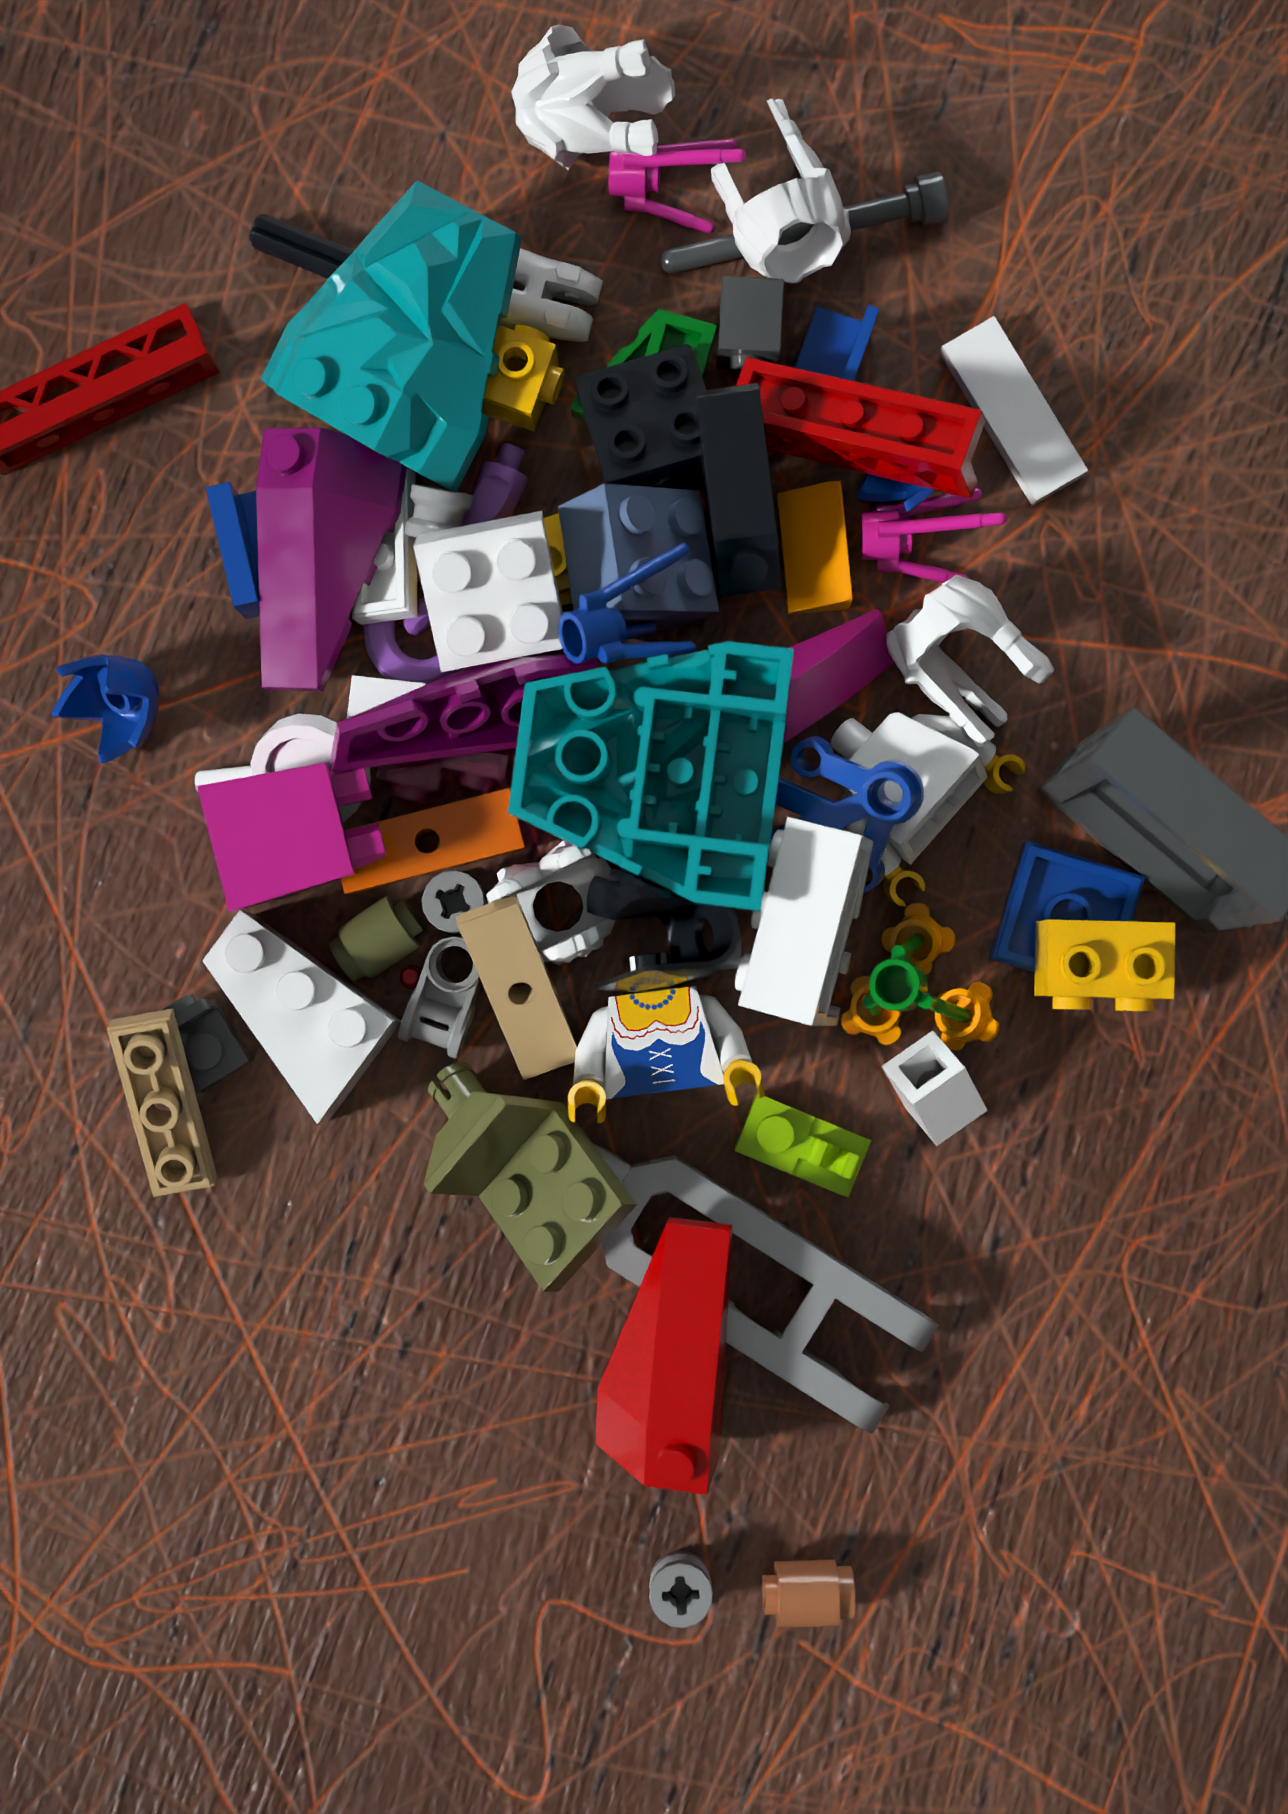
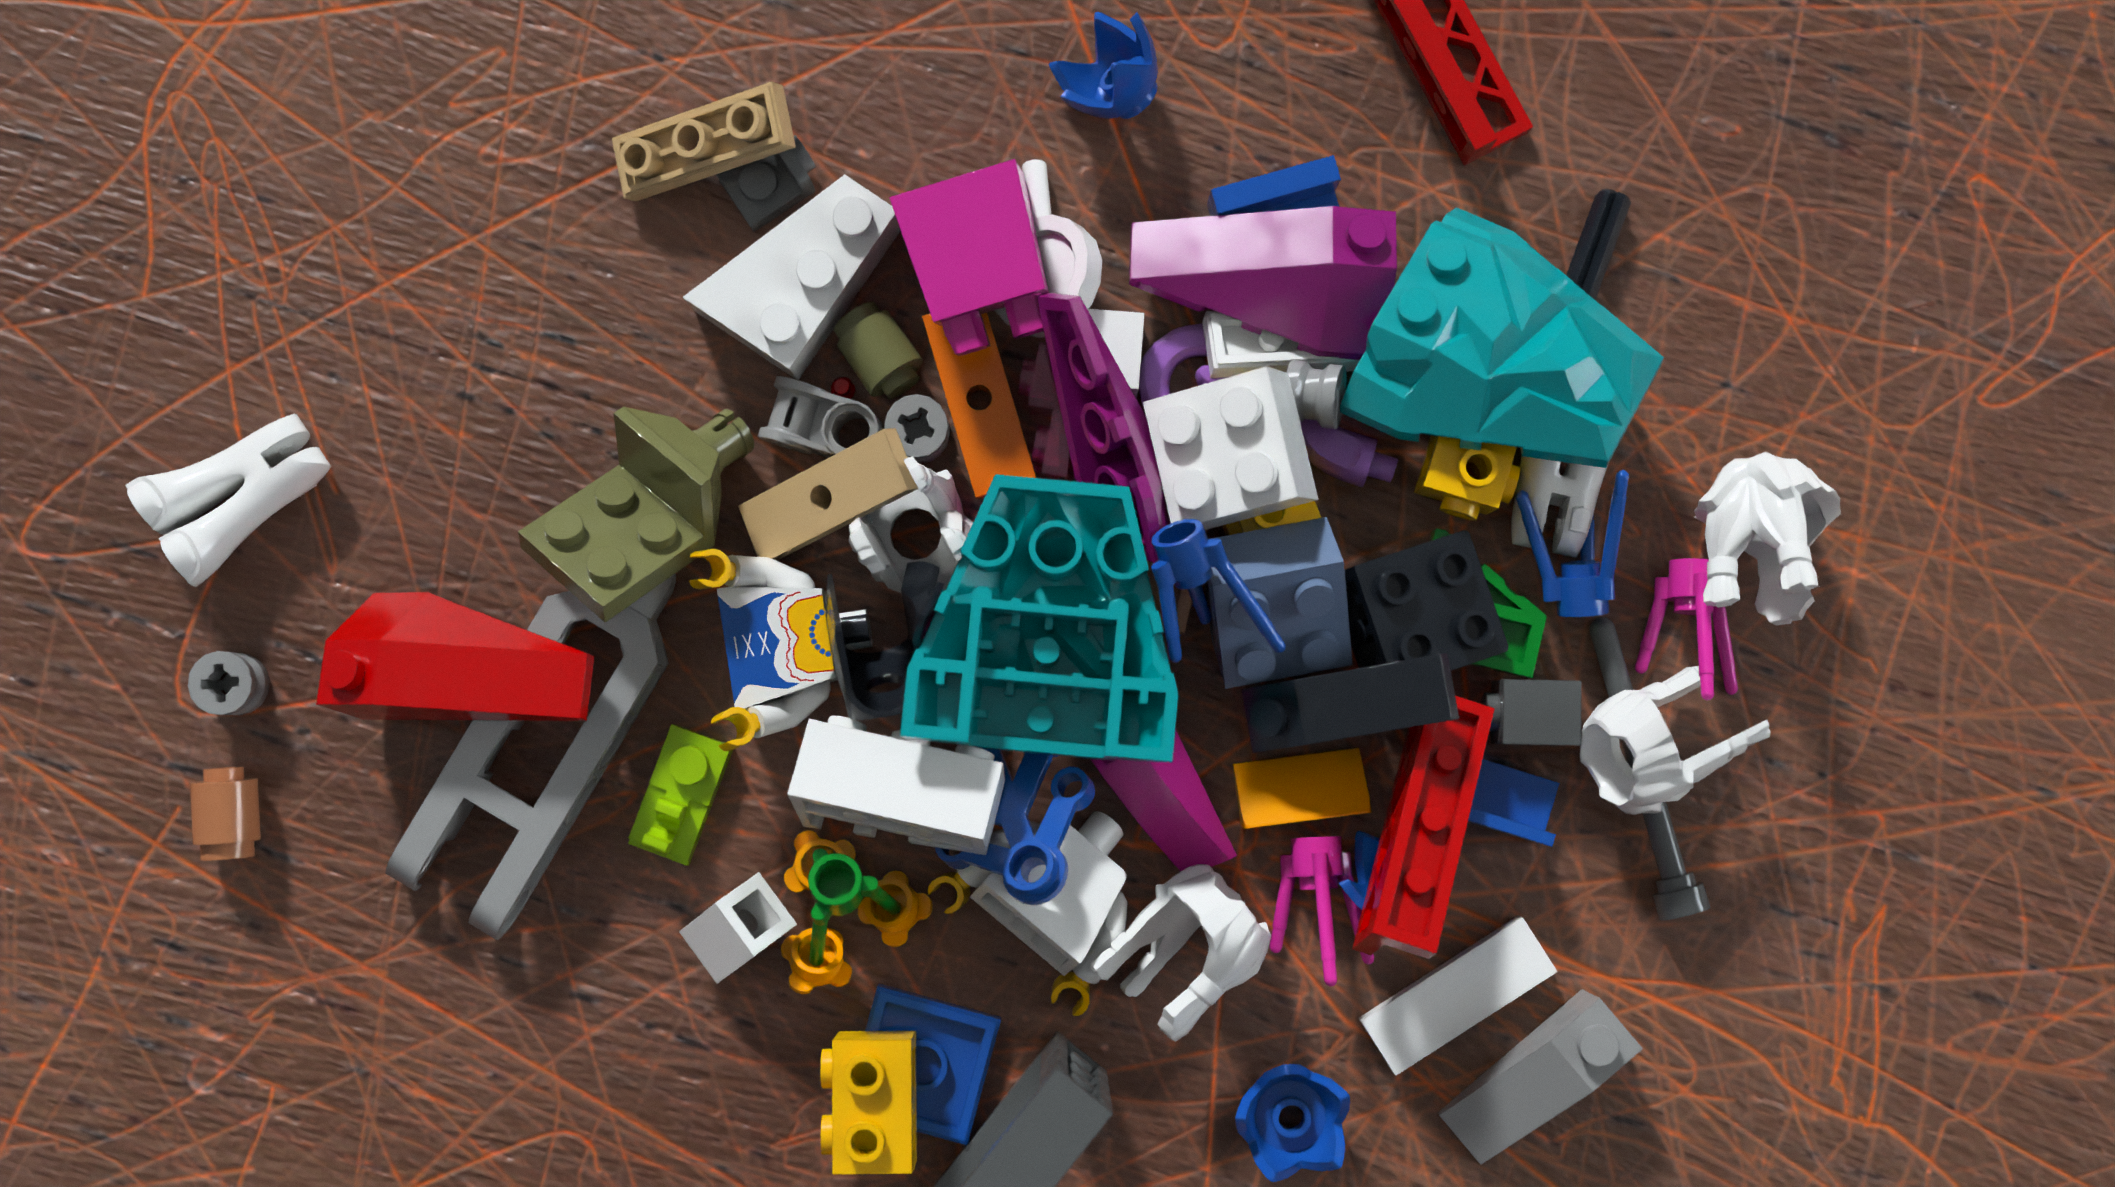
camera: 85 degrees right, 0 degrees up
(492, 1633) = (178, 497): none -> white piece
(631, 275) = (1582, 586): none -> blue plant
(1091, 333) = (1541, 1076): none -> light grey slope
(1147, 546) = (1312, 1144): none -> blue piece

